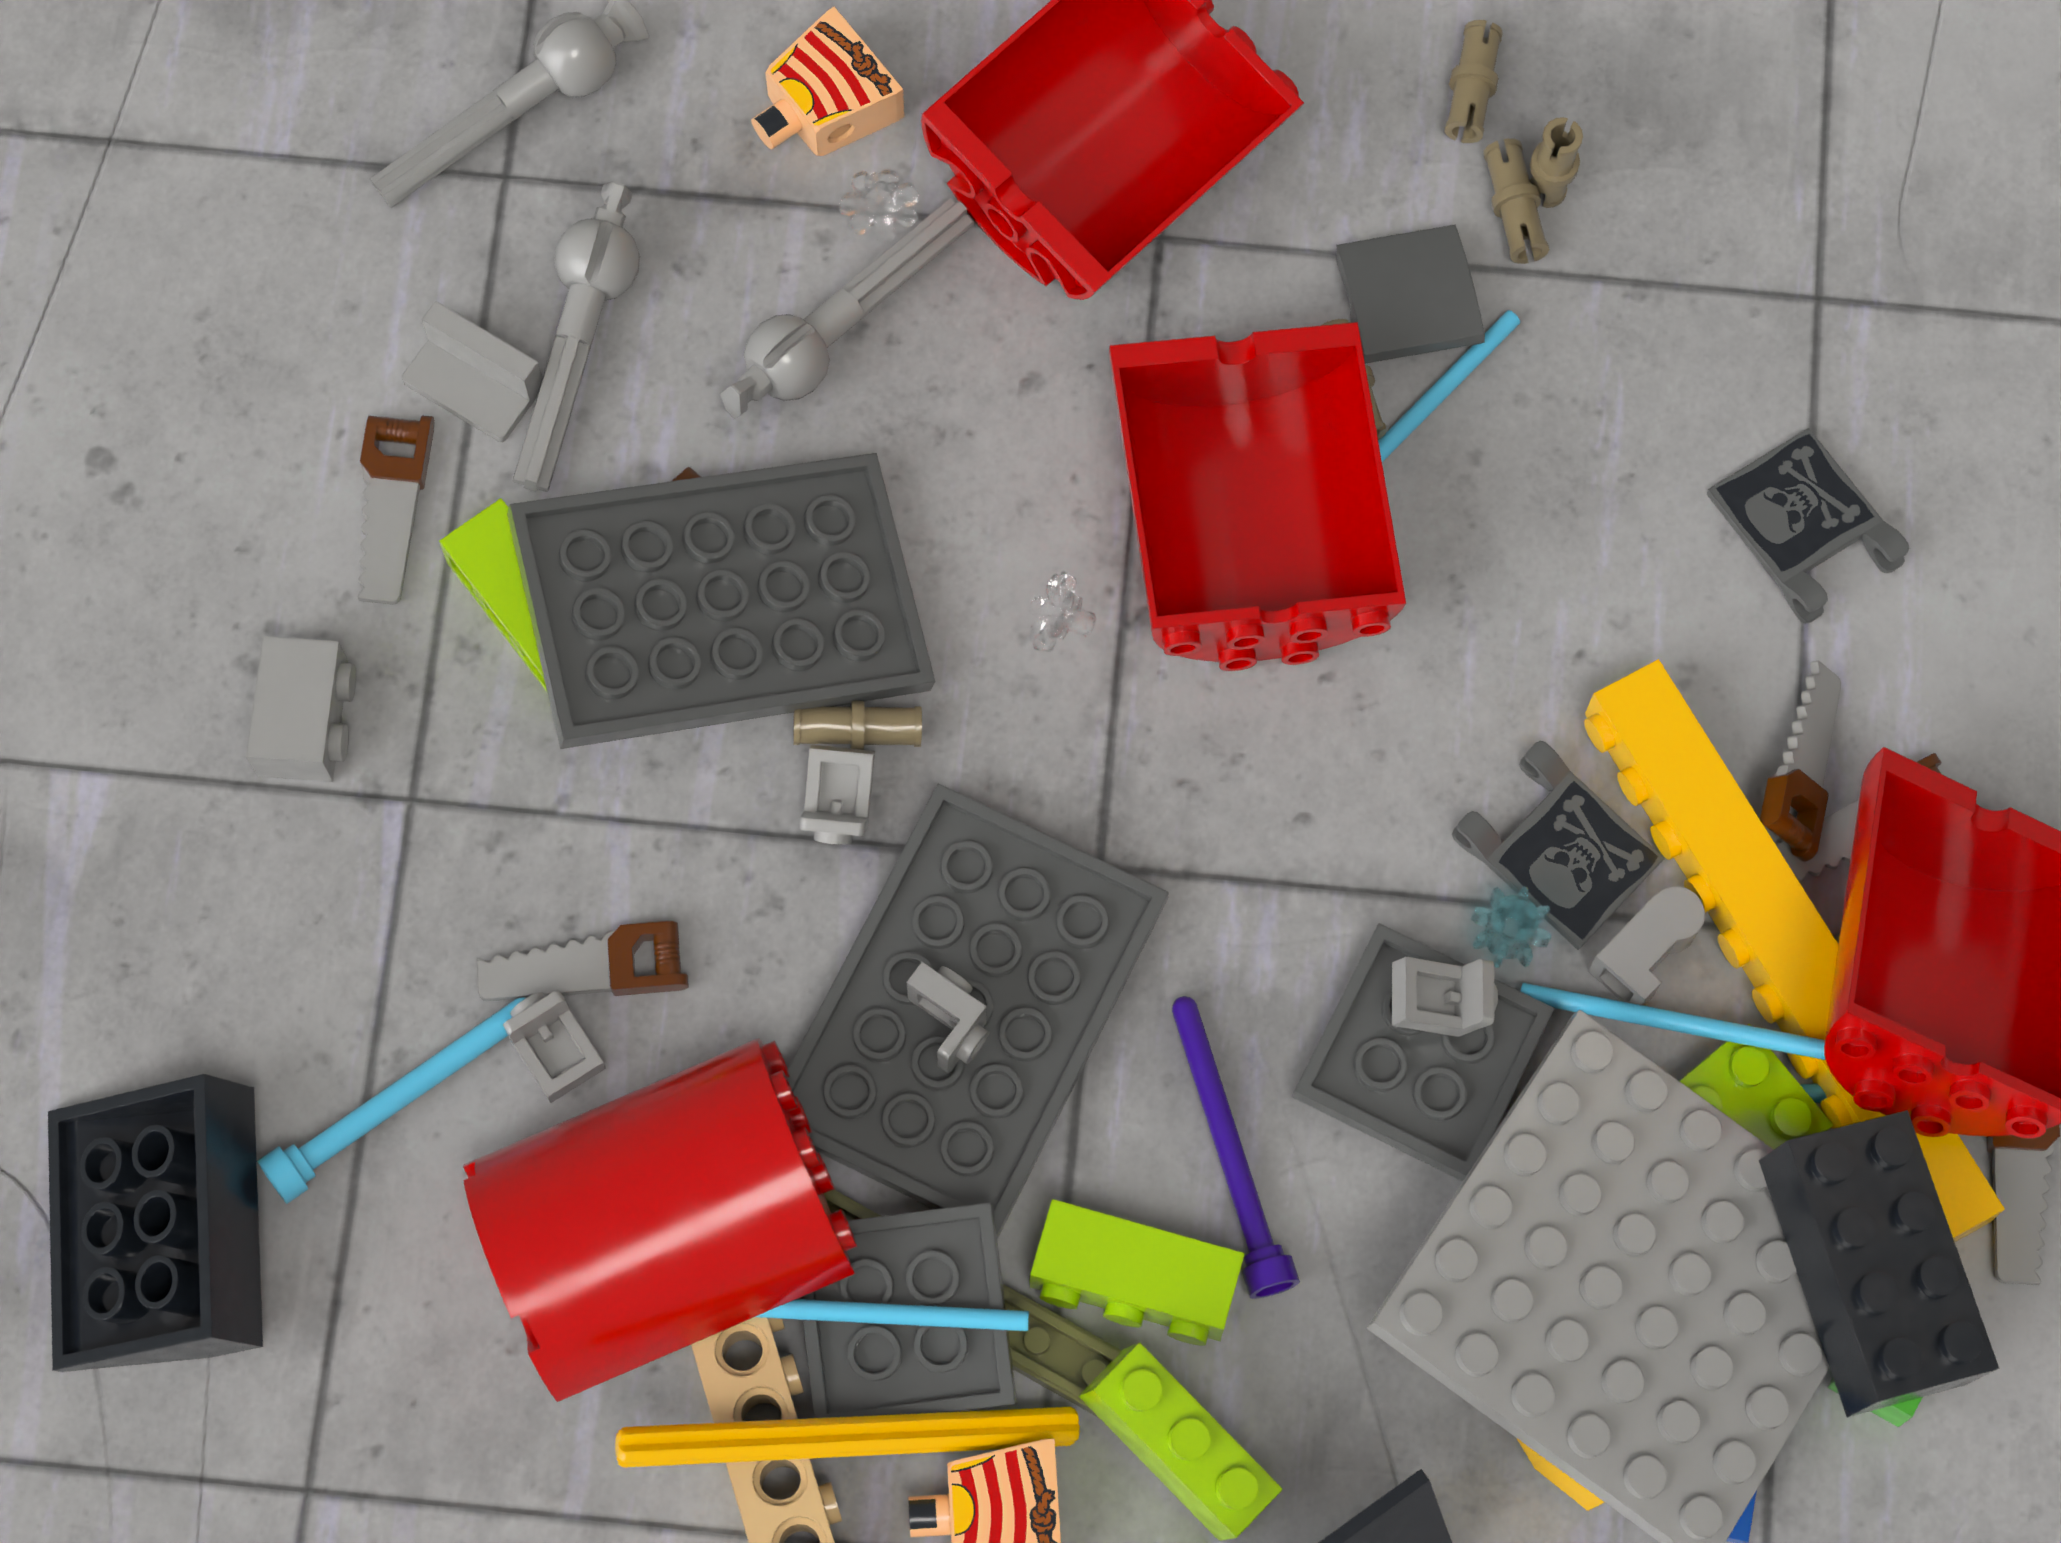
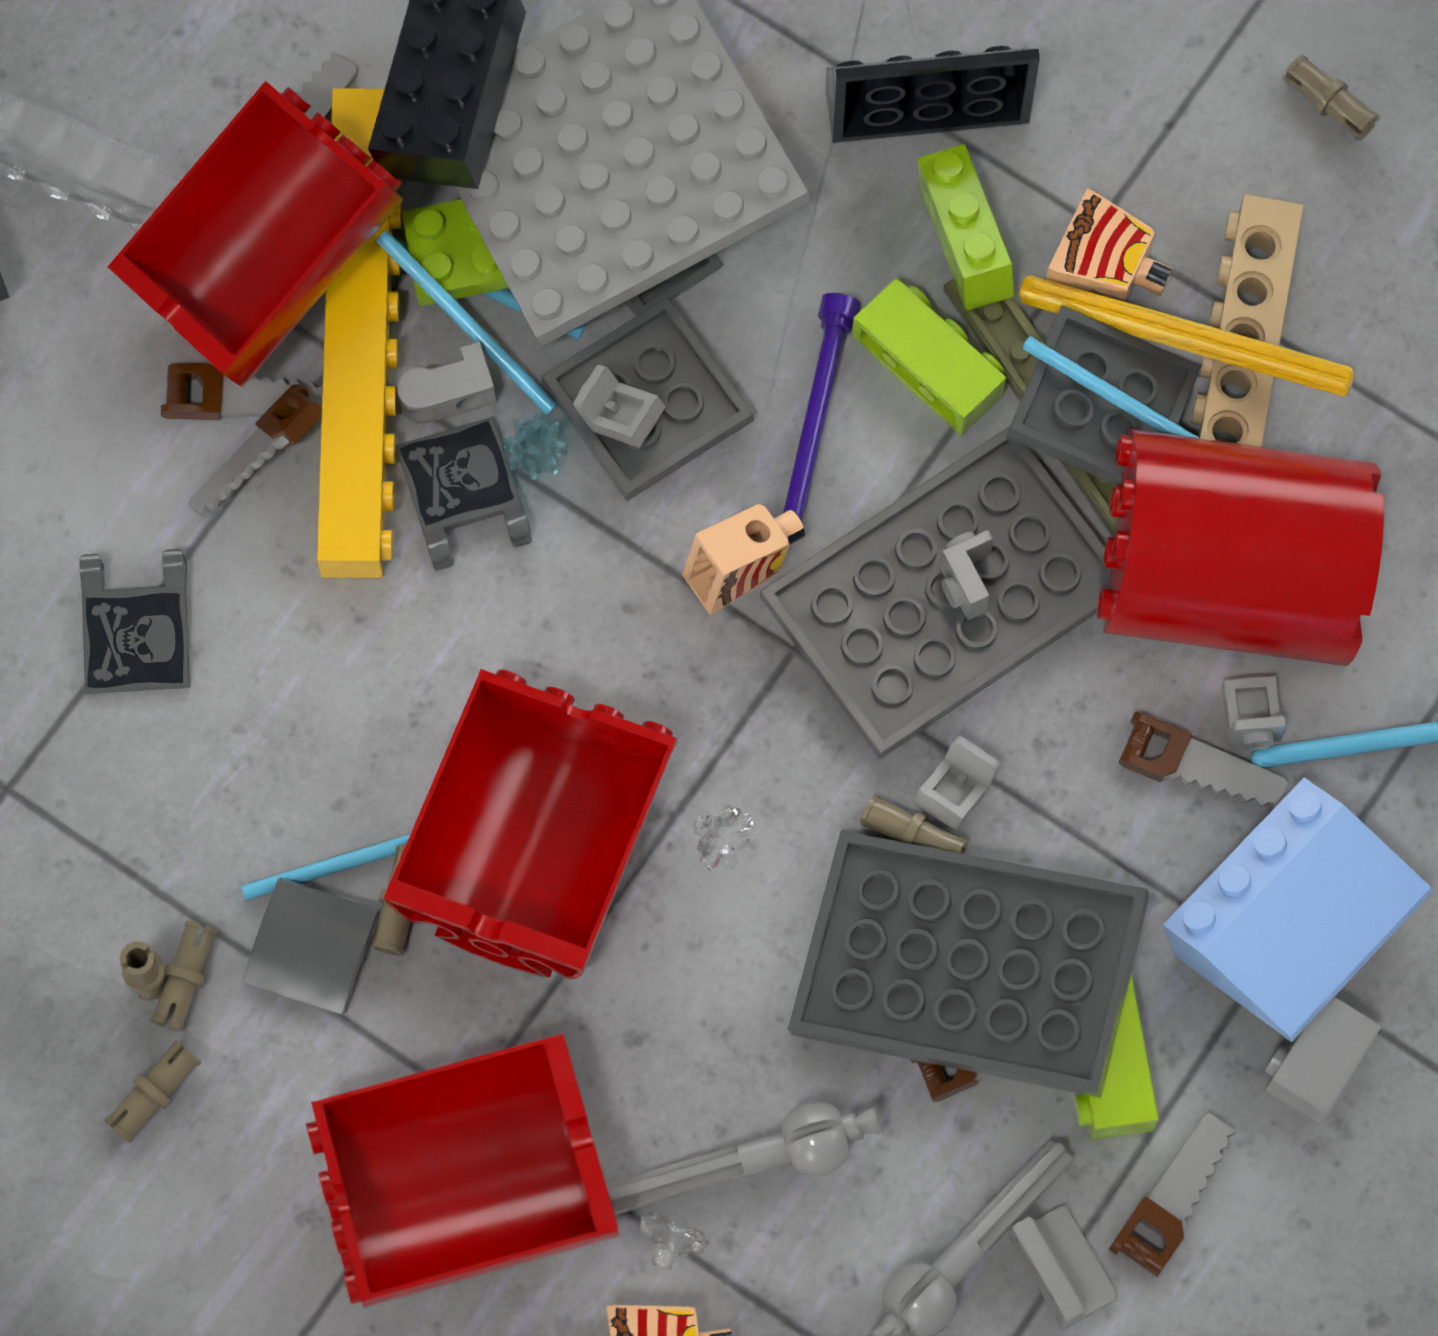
camera: 150 degrees left, 0 degrees up
(395, 834) = (1295, 910): none -> light blue slope
(1218, 890) = (739, 555): none -> light nougat torso

